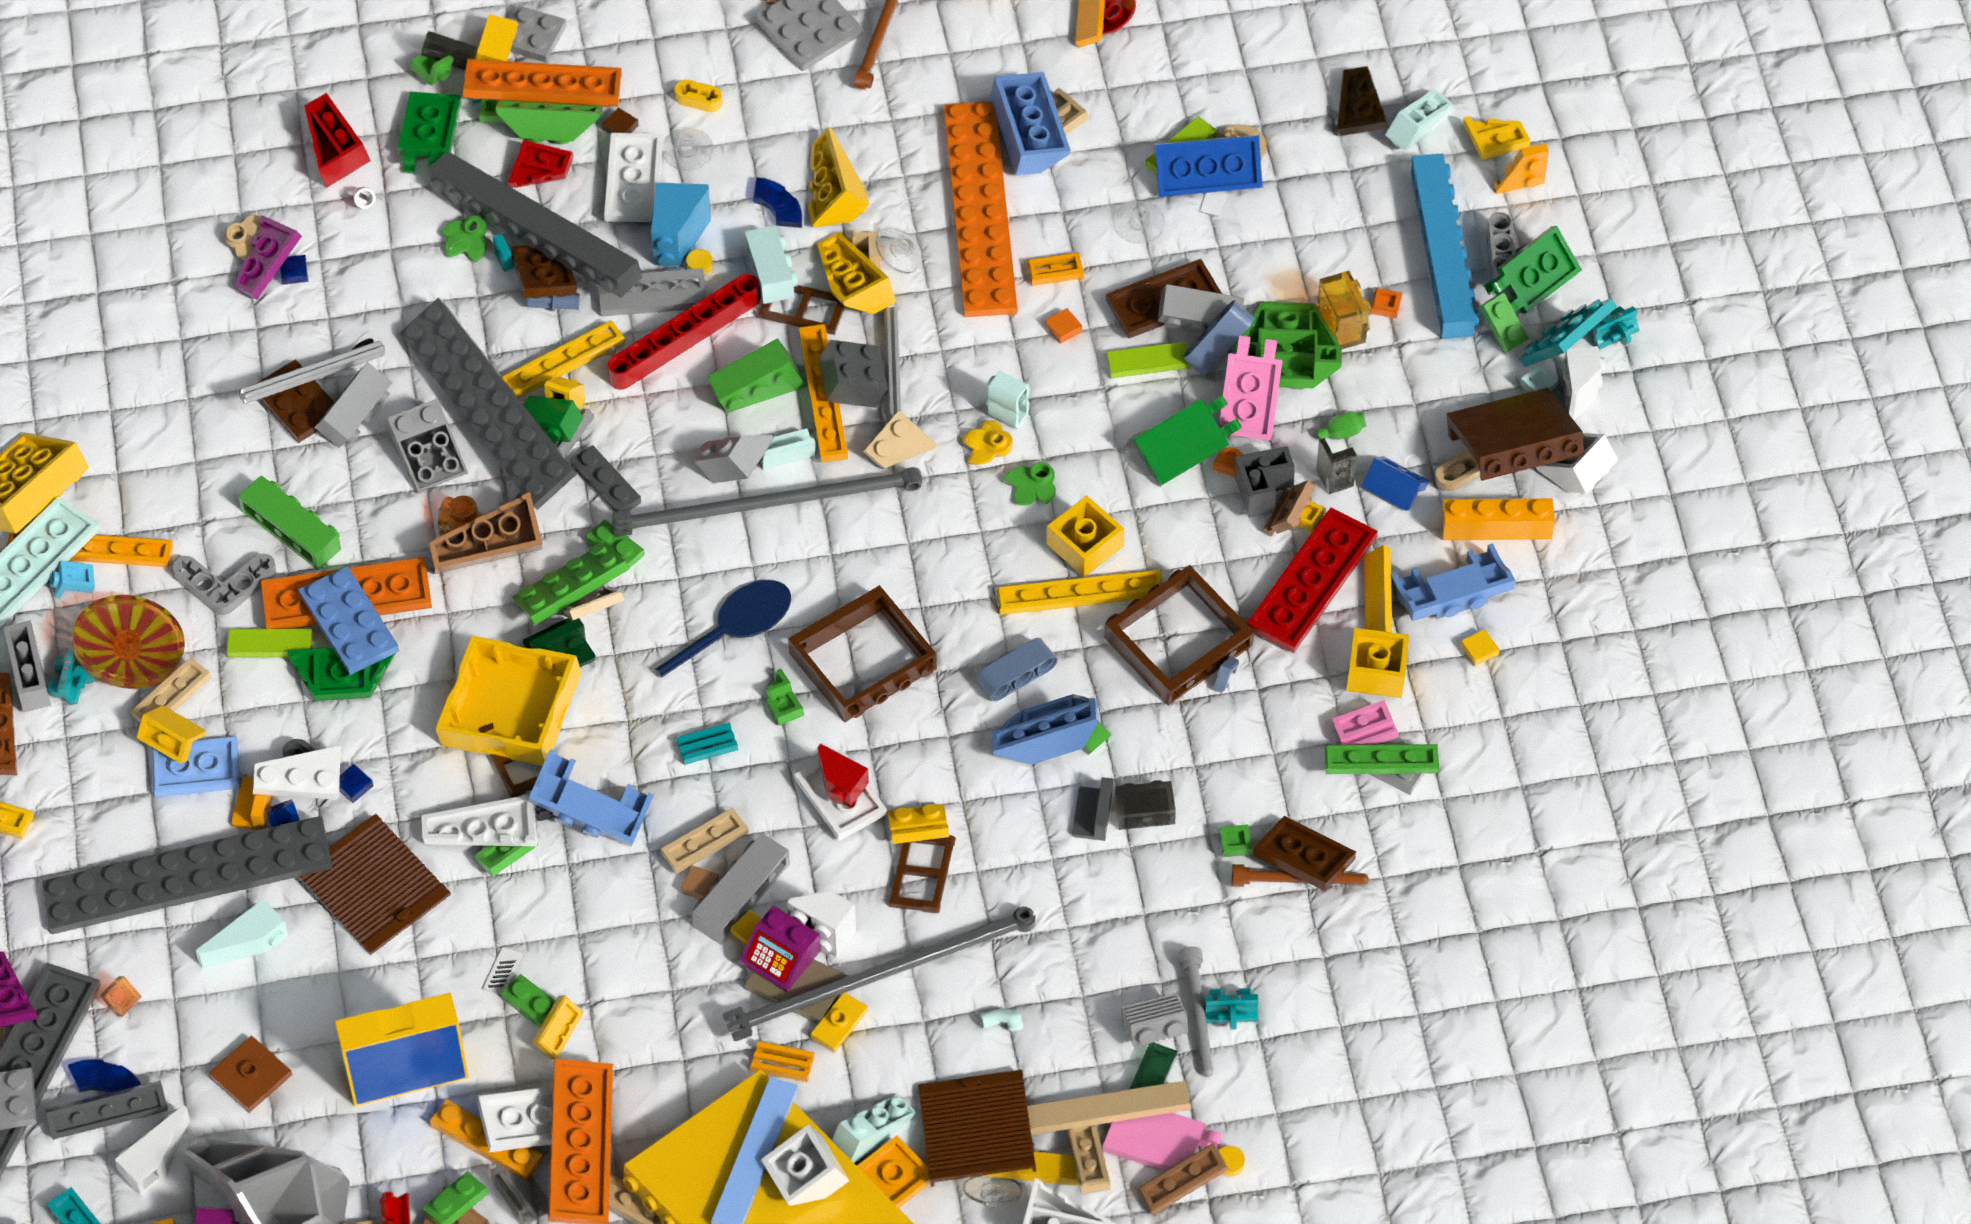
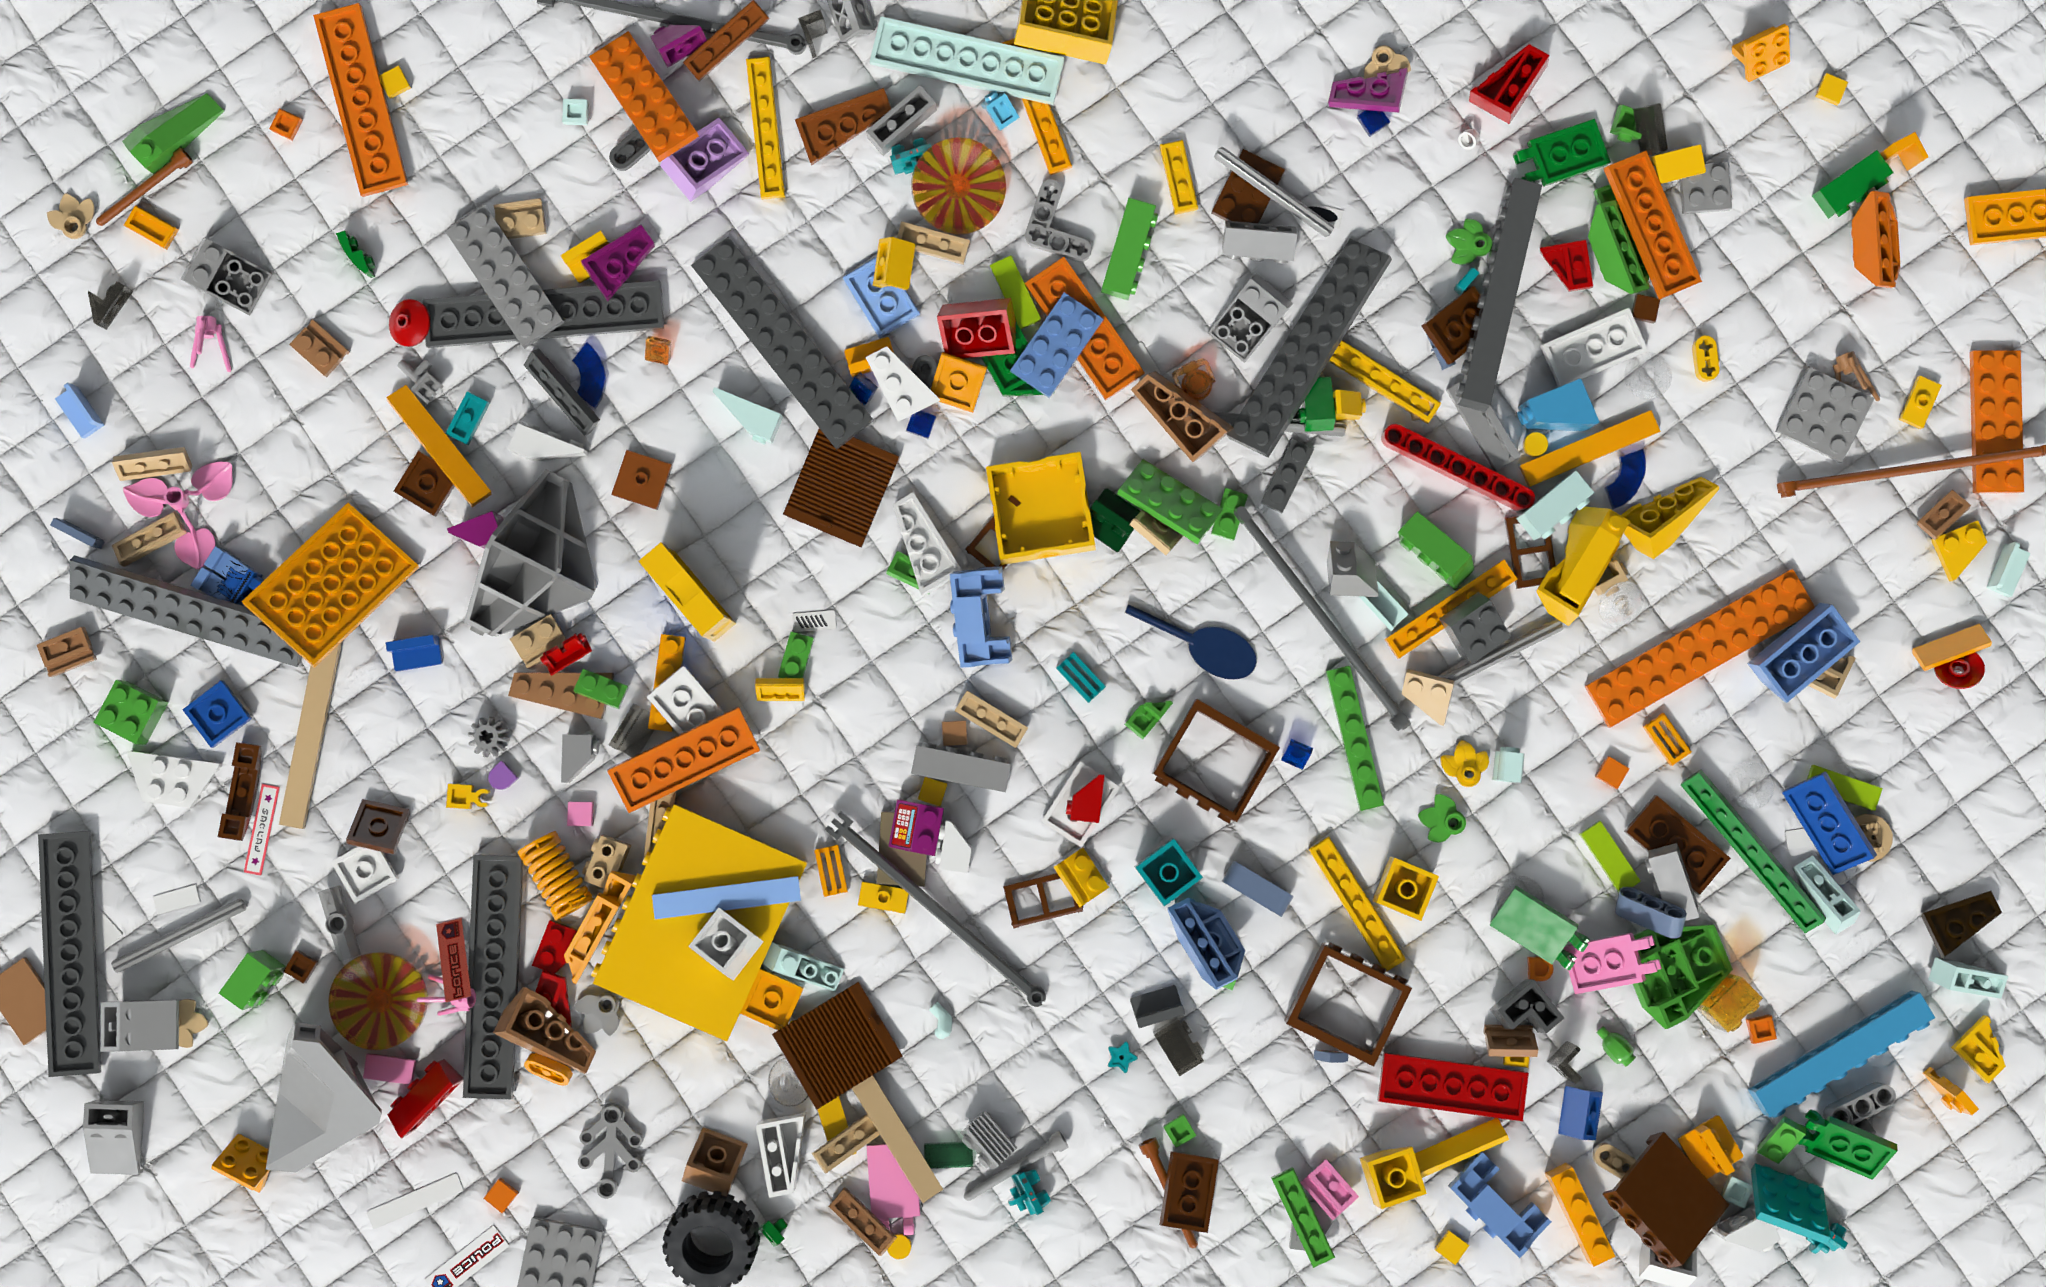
camera: 65 degrees right, 30 degrees up
(244, 454) = (1178, 177): none -> yellow tile
(287, 682) = (978, 328): none -> red slope
(331, 725) = (958, 381): none -> light orange tile
(730, 219) = (1589, 448): none -> light orange tile
(828, 248) = (1590, 544): none -> yellow wedge
(895, 579) = (1296, 754): none -> clear blue plate
(908, 527) = (1354, 738): none -> bright green plate
(955, 737) = (1168, 872): none -> teal brick
(1133, 871) = (1122, 1050): none -> teal plate
(1203, 239) = (1753, 851): none -> green plate
(1282, 196) = (1826, 895): none -> light aqua slope
(1484, 383) = (1711, 1147): none -> light orange bracket

